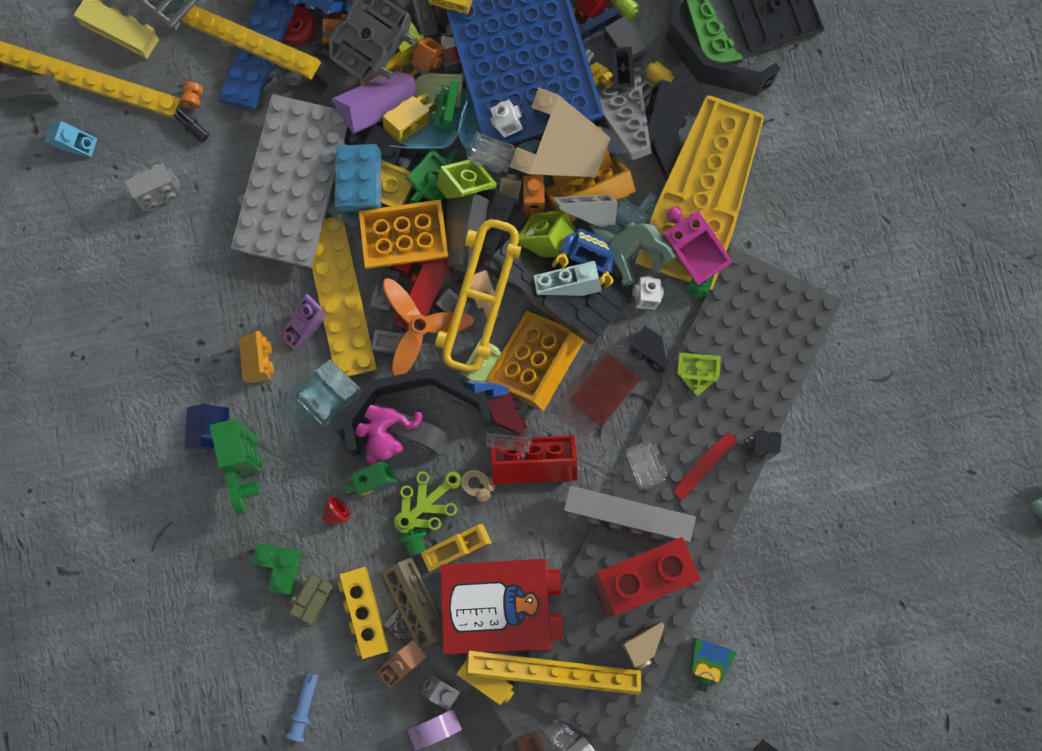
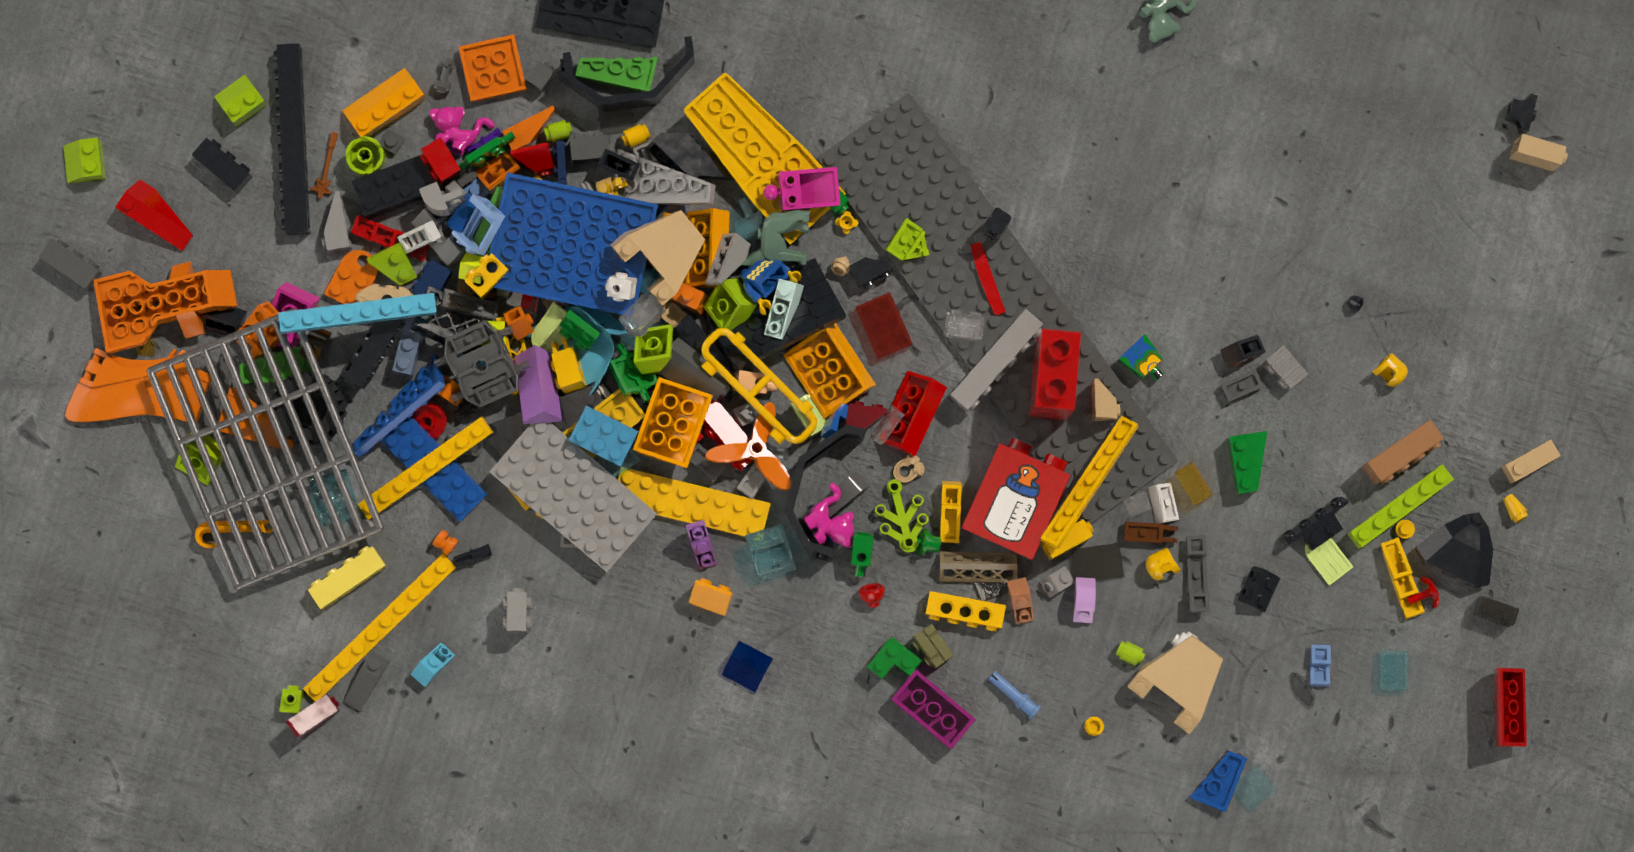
camera: 65 degrees left, 5 degrees up
(238, 458) = (792, 647): green brick -> none
(246, 632) = (933, 709): none -> magenta brick
(640, 319) = (840, 266): none -> tan plate
(648, 293) = (822, 248): white brick -> none
(691, 302) = (846, 227): none -> yellow plate

